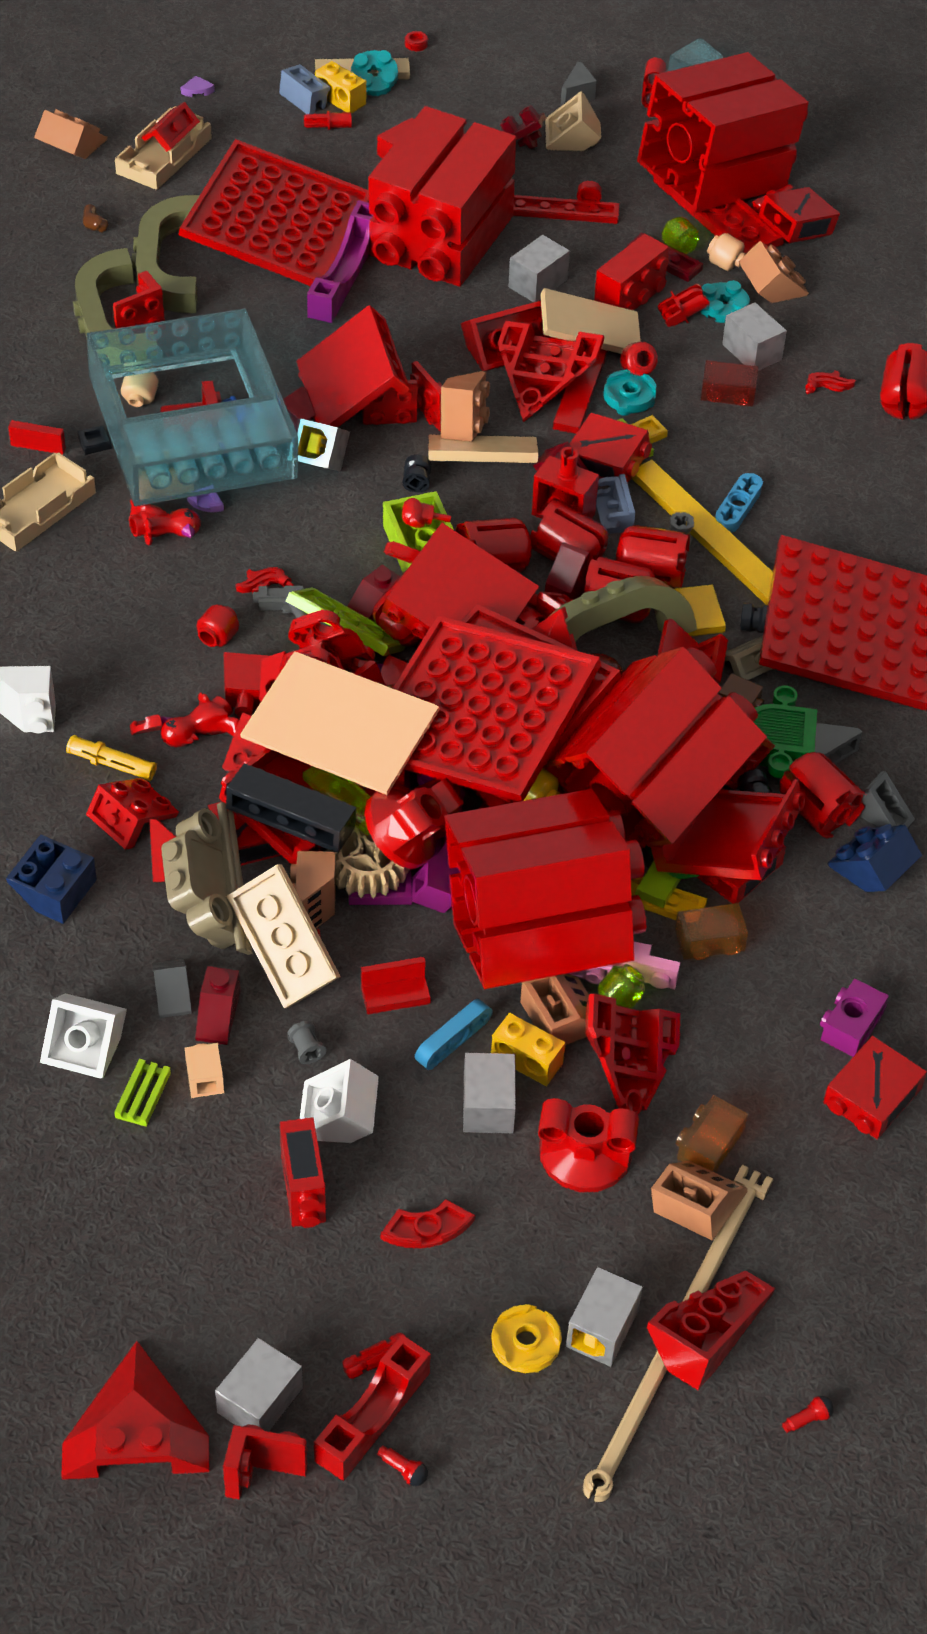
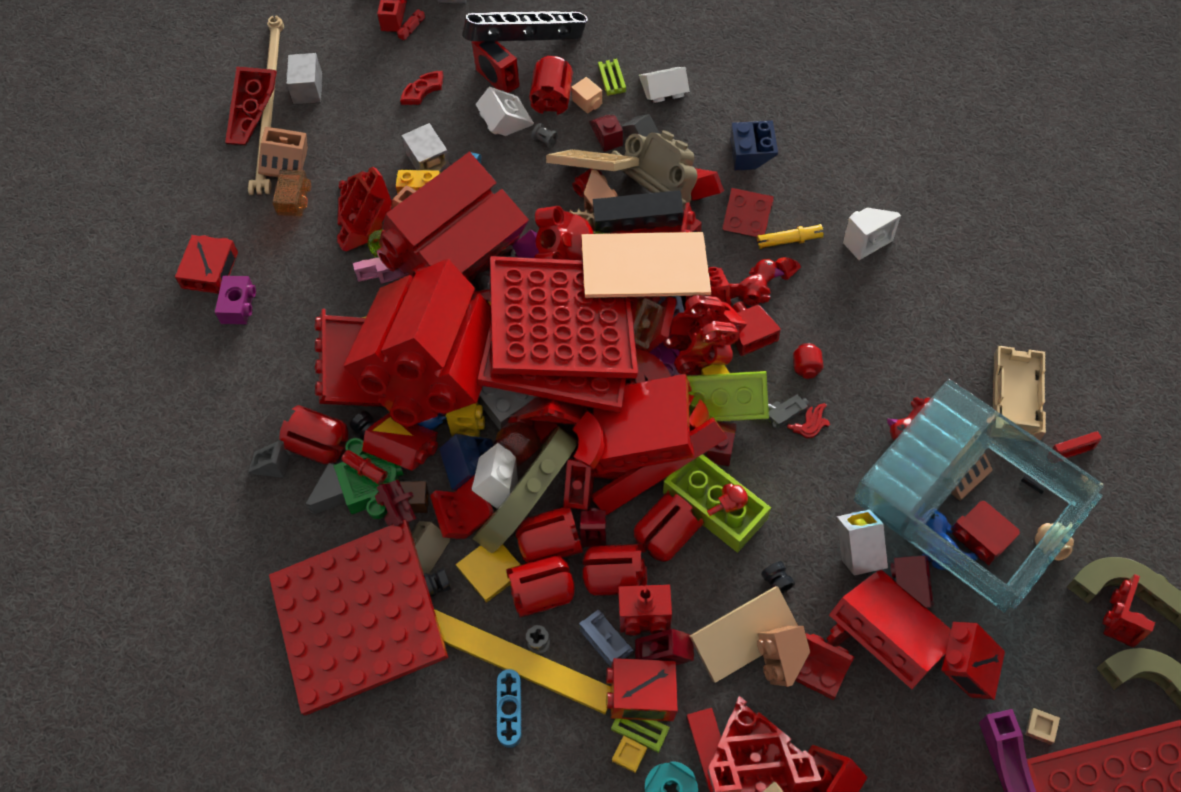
camera: 155 degrees right, 10 degrees up
(225, 1180) = (524, 26): none -> black beam
(247, 1095) = (551, 85): none -> red cylinder
(282, 299) = (1042, 726): none -> tan tile
(305, 333) = (973, 660): none -> red brick
(394, 985) = (521, 185): red panel -> none
(520, 1356) = (346, 72): yellow tile -> none
(529, 598) = (590, 440): none -> red tile
(583, 1161) = (358, 151): red piece -> none
(645, 637) = (495, 475): none -> white slope
(711, 931) = (350, 304): clear orange brick -> none
(763, 674) = (396, 503): none -> dark red hips
(781, 723) = (364, 467): none -> red axle
(818, 1409) = (180, 99): red piece -> none
(876, 857) = (261, 416): dark blue slope -> none

